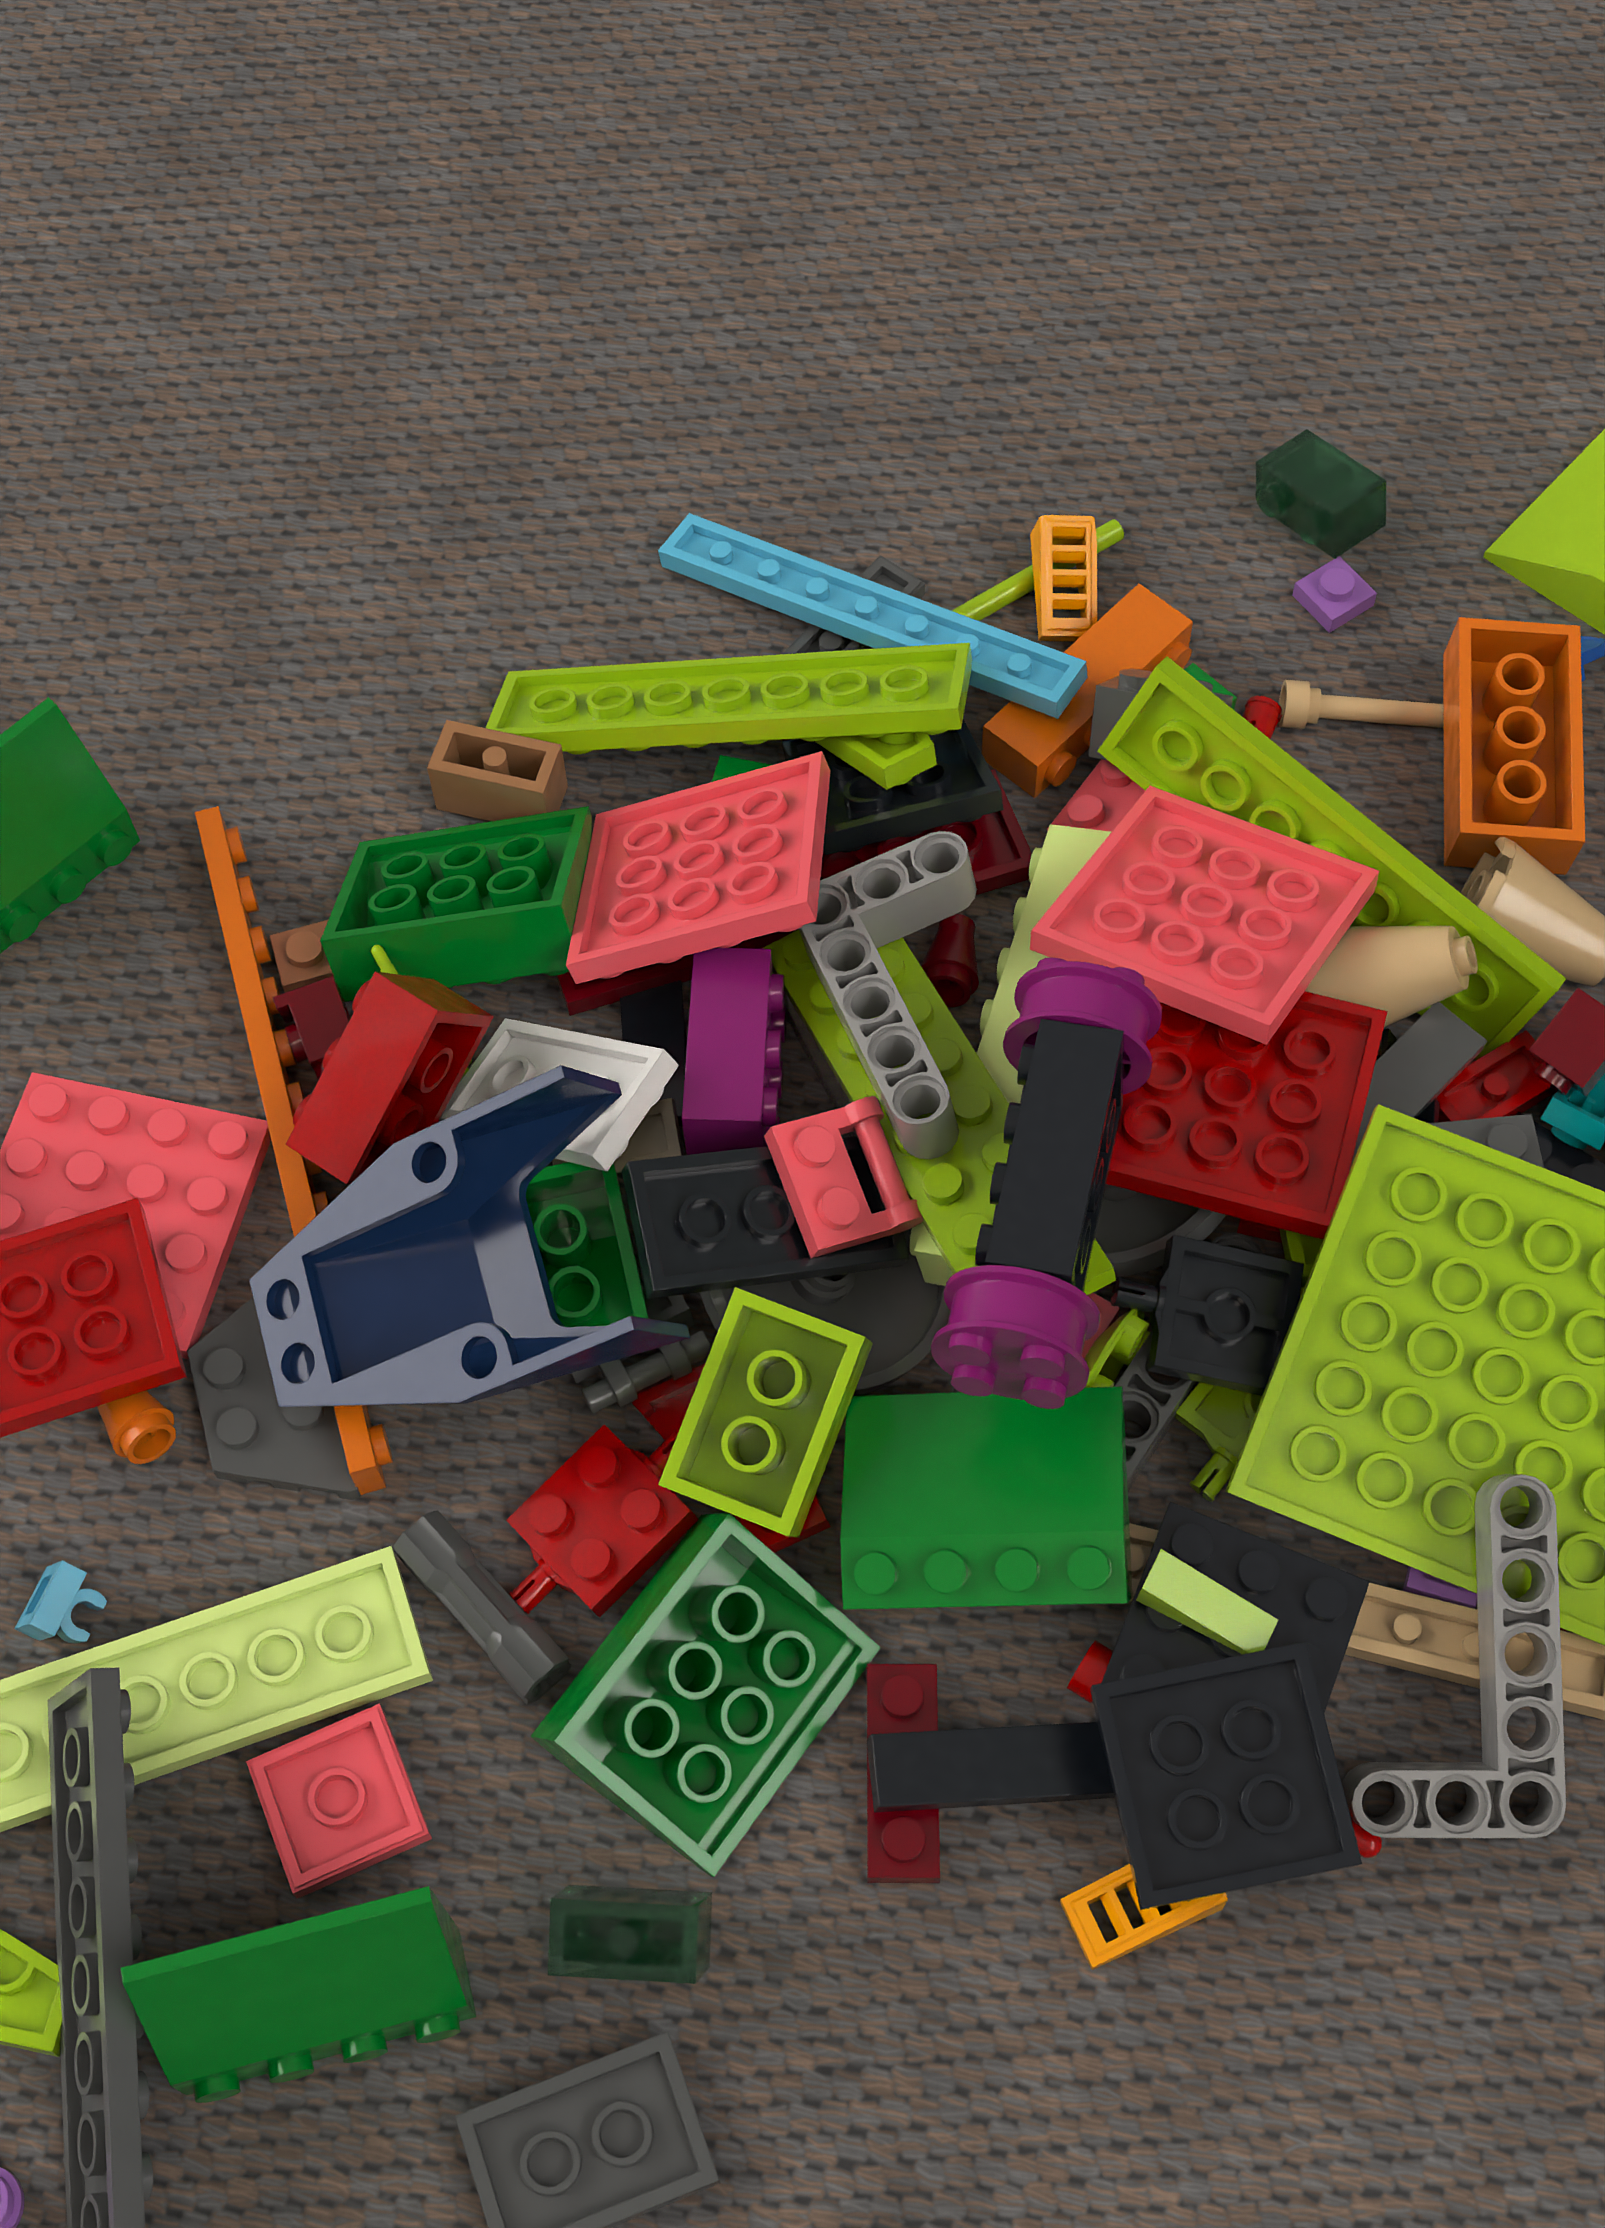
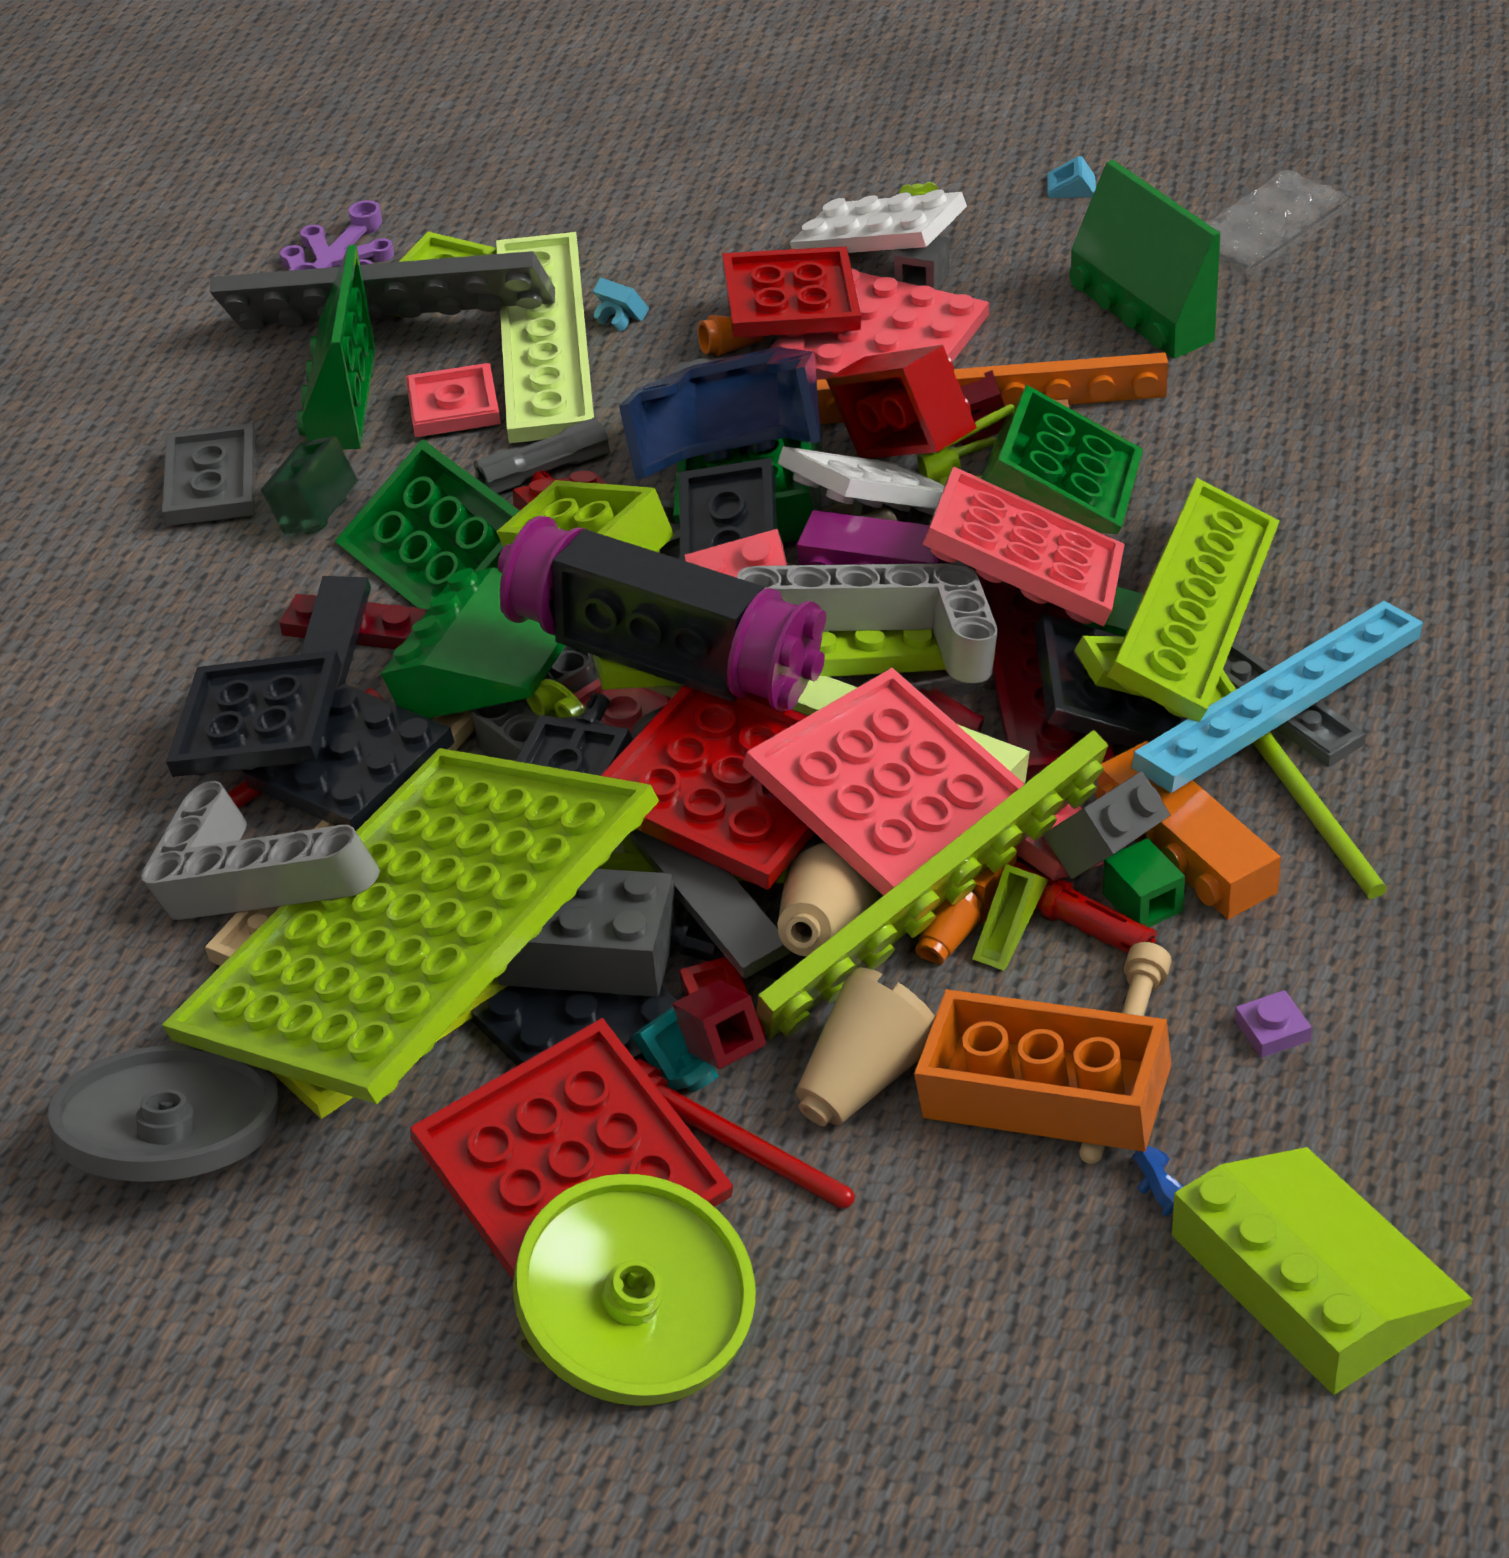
camera: 105 degrees right, 20 degrees down
(495, 773) = (1161, 492): medium nougat brick -> none
(1064, 541) = (1329, 843): light orange slope -> none
(1205, 1605) = (370, 713): lime piece -> none
(1321, 493) = (1378, 1013): clear green brick -> none

